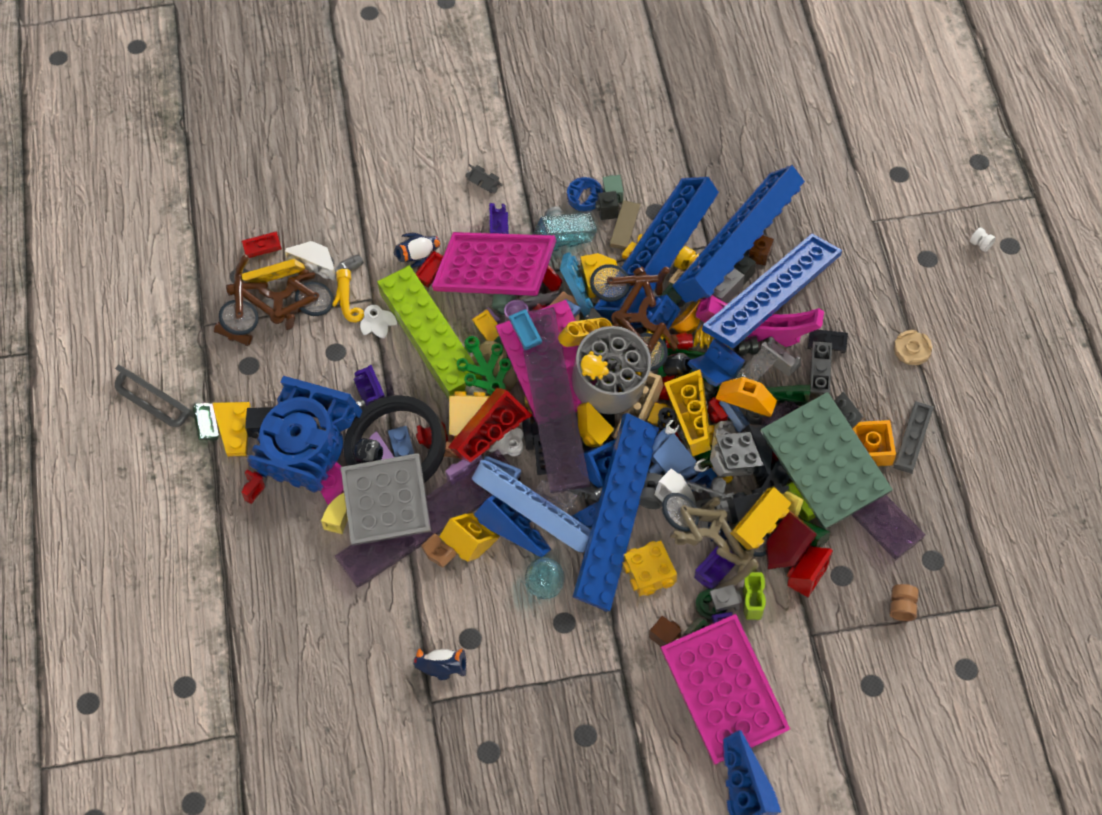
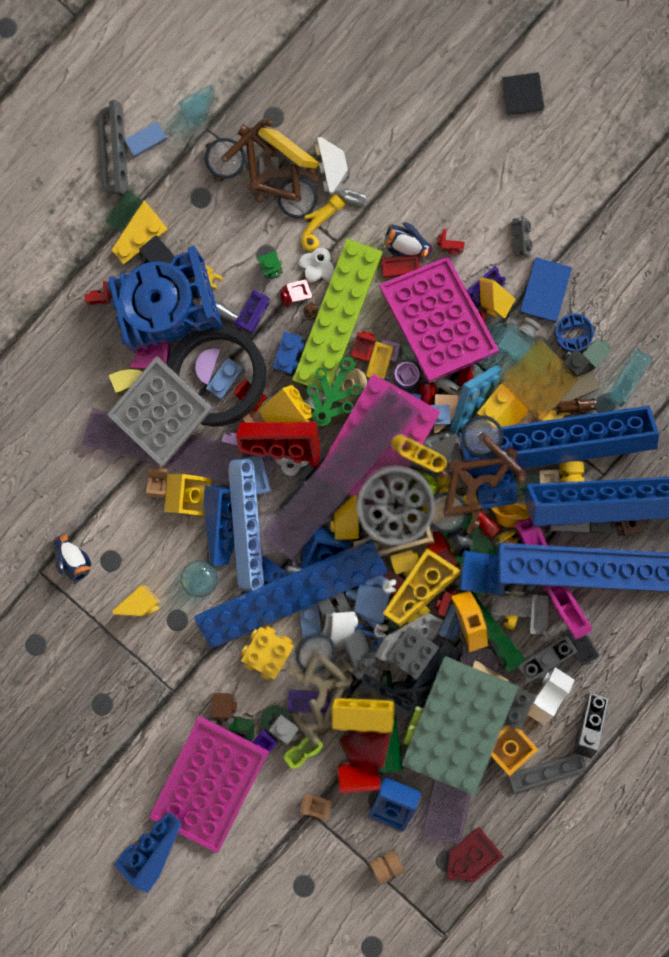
camera: 50 degrees right, 25 degrees up
(168, 370) = (146, 139): none -> medium blue tile
(180, 316) = (197, 106): none -> clear light blue slope
(261, 244) = (312, 111): red plate -> none
(346, 350) = (270, 265): none -> green brick
(367, 450) = (188, 364): black head -> none
(382, 111) = (522, 93): none -> black tile
(382, 350) = (295, 293): none -> bracket
(407, 345) = (310, 311): none -> reddish brown axle
(425, 385) = (287, 354): none -> blue brick
(446, 226) = (450, 246): none -> red bracket
(464, 328) = (363, 346): none -> red bracket
(512, 219) = (495, 298): none -> yellow slope
(525, 329) = (380, 405): dark azure tile -> none
(527, 630) = (139, 603): none -> yellow slope
(536, 190) = (545, 289): none -> blue tile
(593, 366) = (375, 496): yellow piece -> none
(600, 231) = (539, 380): none -> clear yellow plate
(640, 225) = (577, 405): none -> reddish brown axle
(650, 181) = (629, 377): none -> clear light blue slope
(652, 522) = (310, 620): none -> medium blue plate
(663, 415) = (404, 576): black bush -> none
(770, 379) = (511, 622): none -> yellow hinge
(796, 502) = (401, 724): light yellow plate -> none
(810, 622) = (316, 806): none -> medium nougat bracket
(851, 382) = (550, 695): none -> white brick
(855, 562) = (394, 804): none -> blue slope
(901, 380) = (591, 726): none -> black slope
(913, 347) = (633, 714): tan tile -> none
(944, 536) = (472, 857): none -> dark red tile

